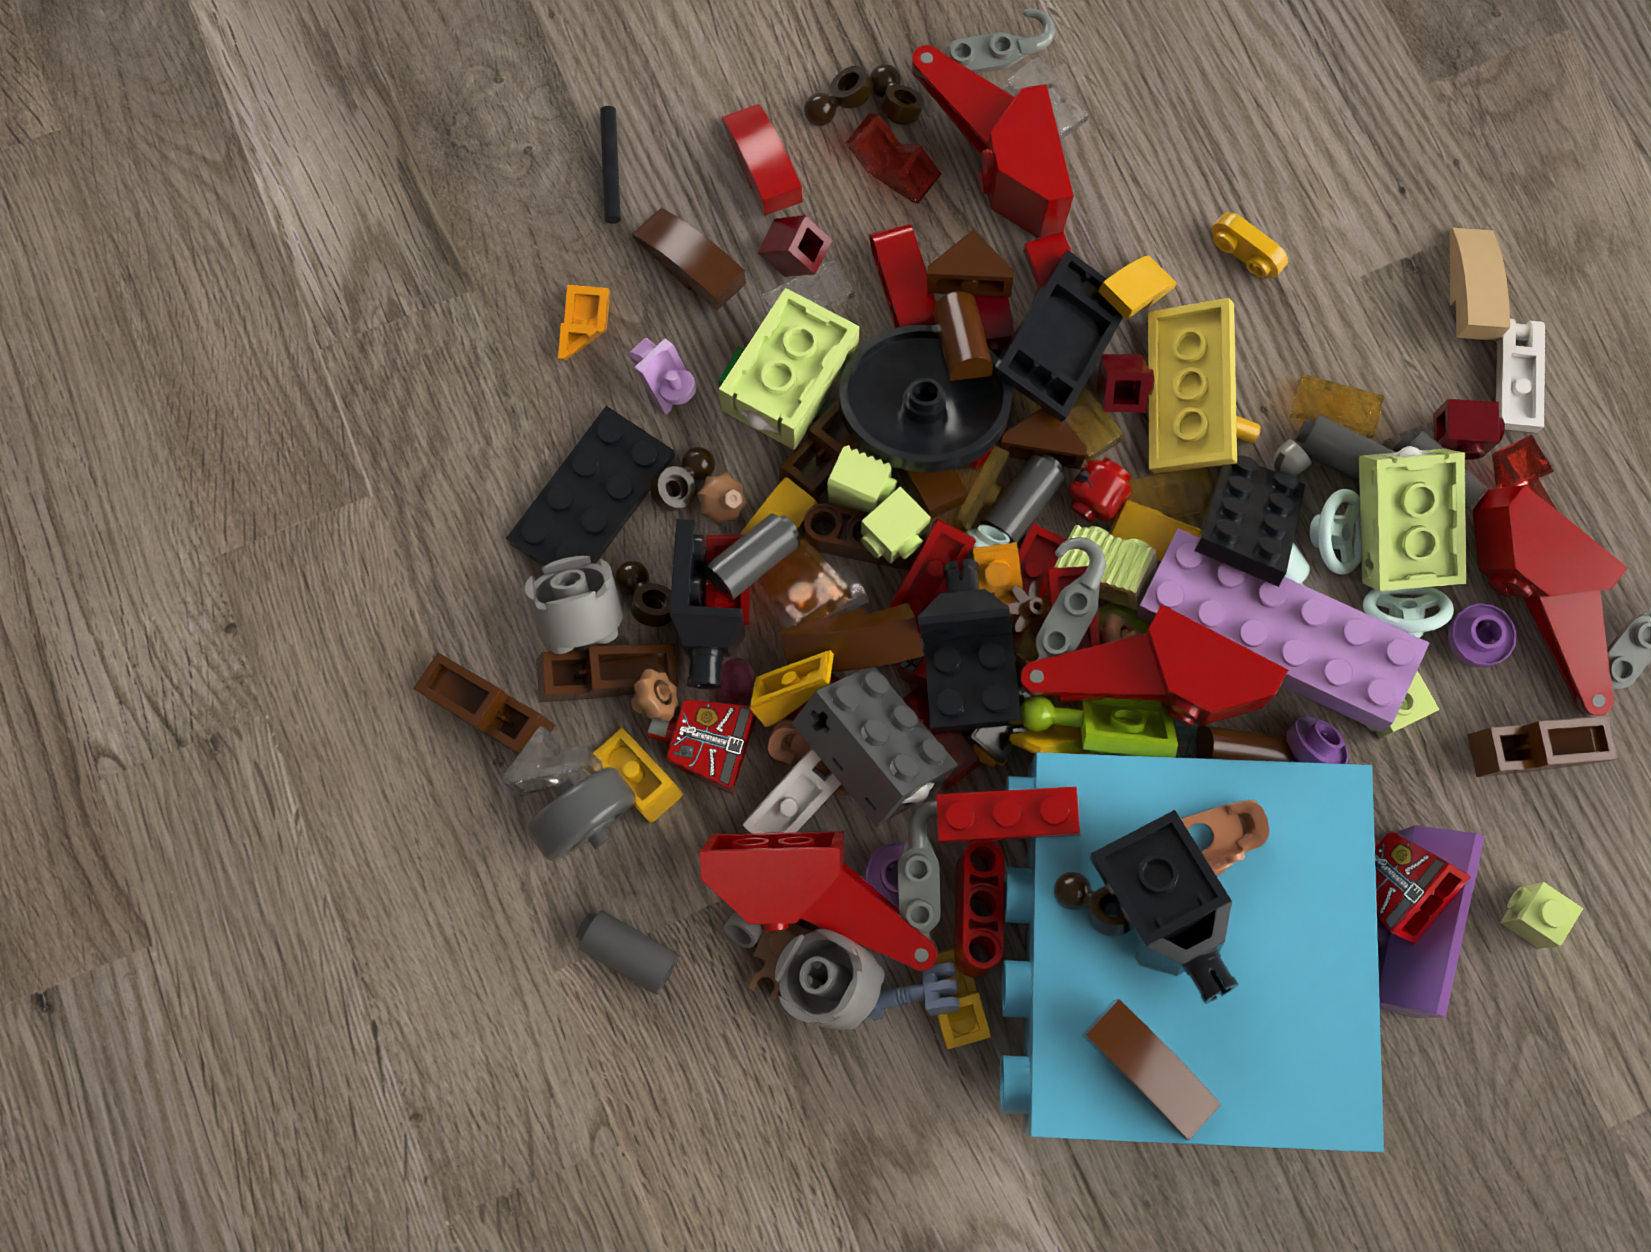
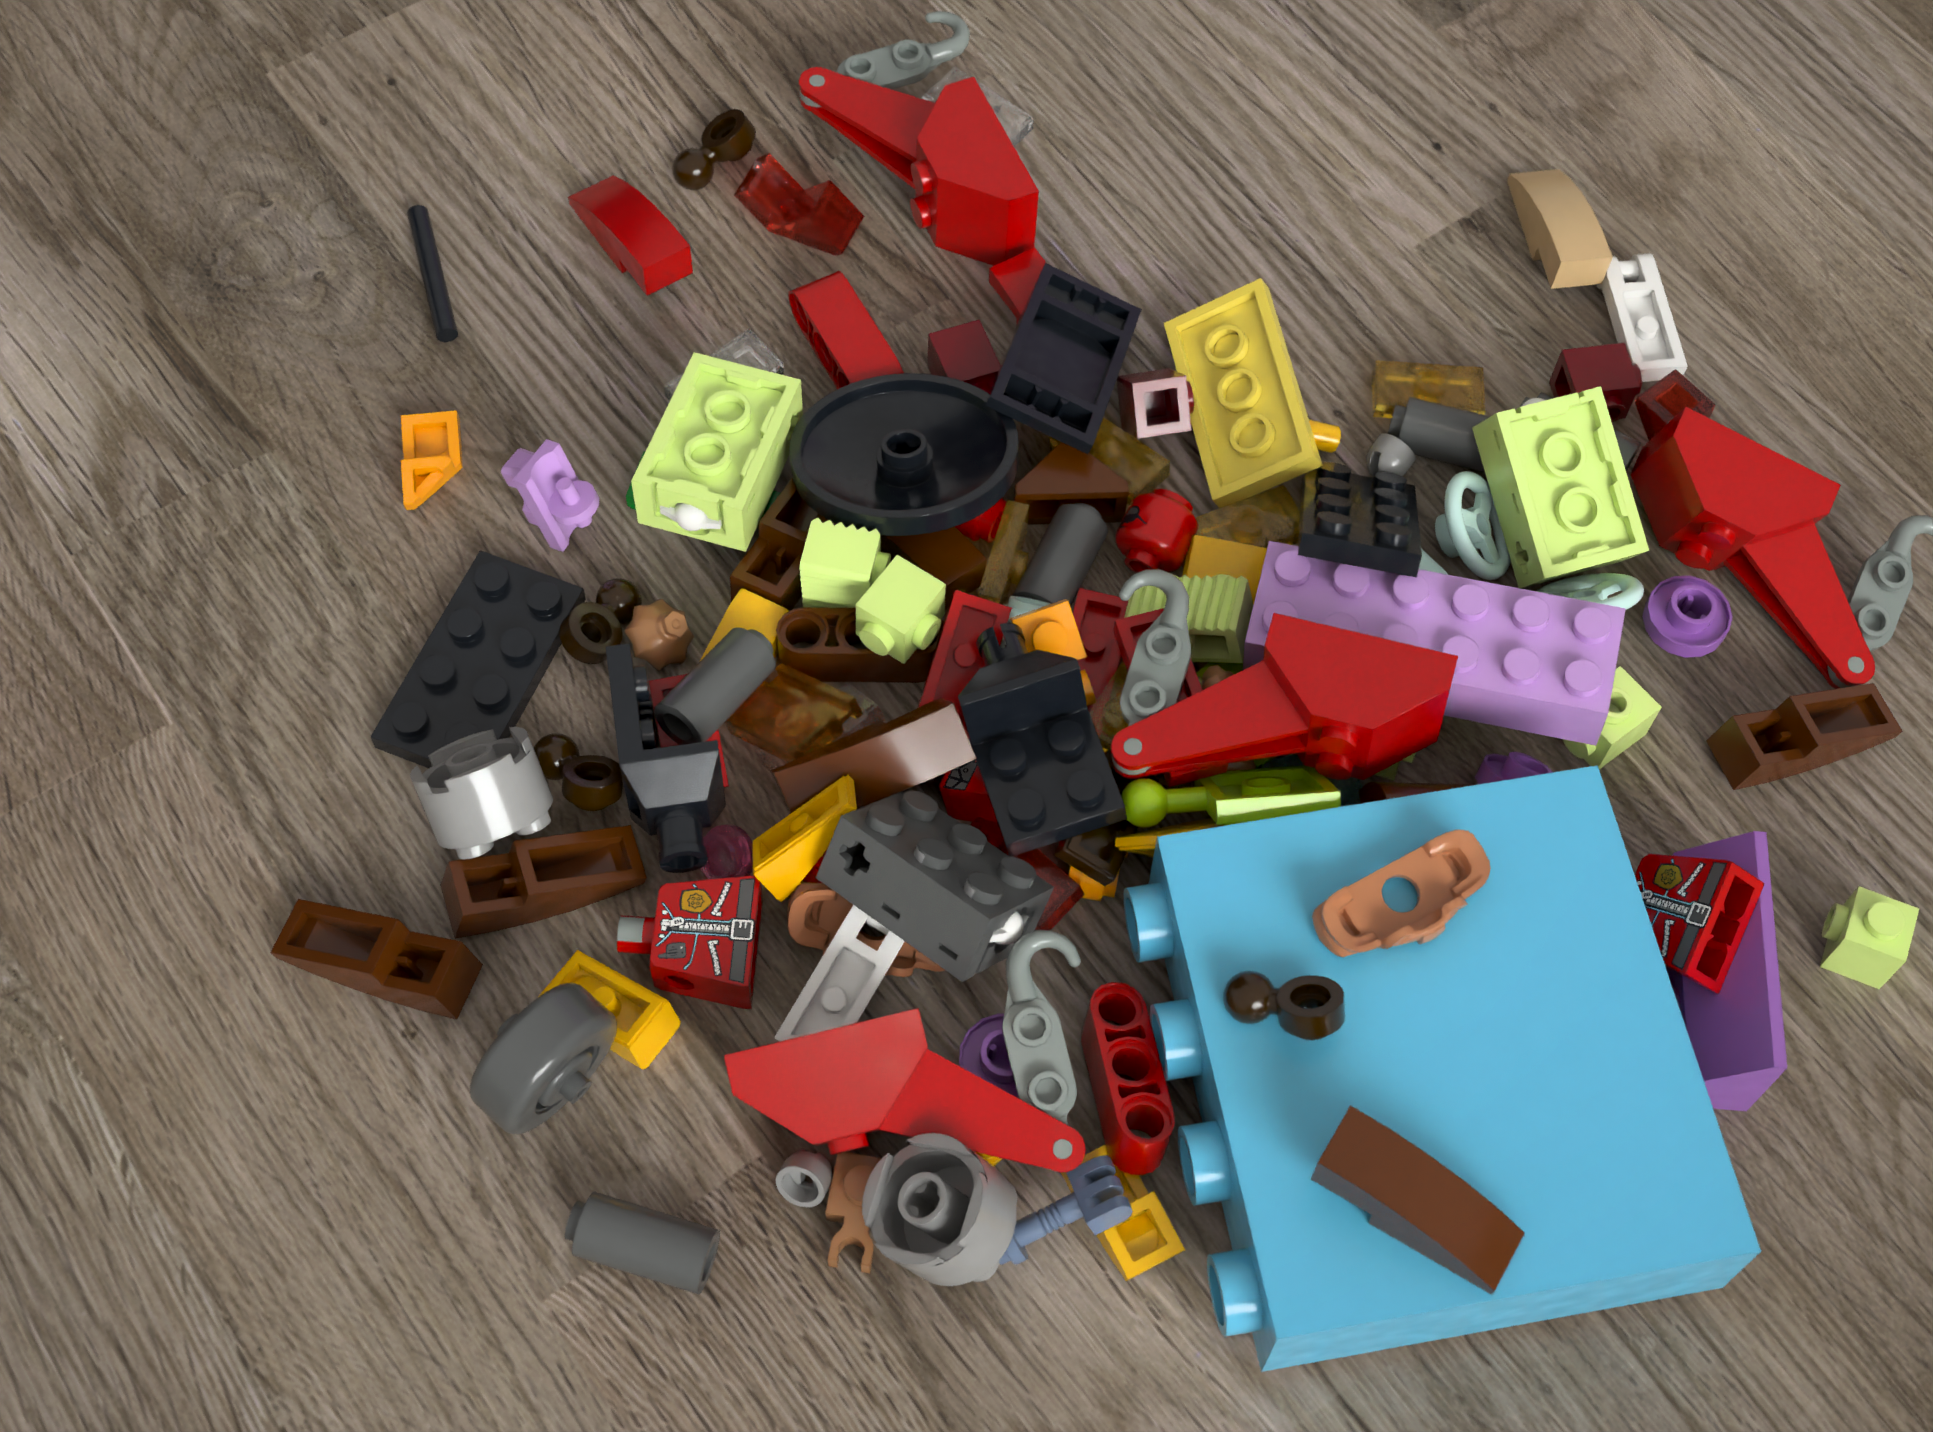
camera: 15 degrees left, 15 degrees down
(542, 769) = (471, 1014): clear slope -> none
(655, 696) = (617, 888): medium nougat piece -> none
(691, 257) = (562, 358): reddish brown slope -> none
(795, 246) = (694, 317): dark red brick -> none
(899, 102) = (792, 143): dark brown plate -> none
(962, 337) = (936, 374): reddish brown brick -> none
(970, 268) = (929, 299): reddish brown slope -> none
(1008, 814) = (1138, 920): red plate -> none
(1029, 608) = (1103, 676): reddish brown plant -> none
(1137, 286) = (1141, 294): yellow slope -> none
(1170, 902) = (1387, 970): black plate -> none
(1250, 245) = (1269, 228): yellow plate -> none

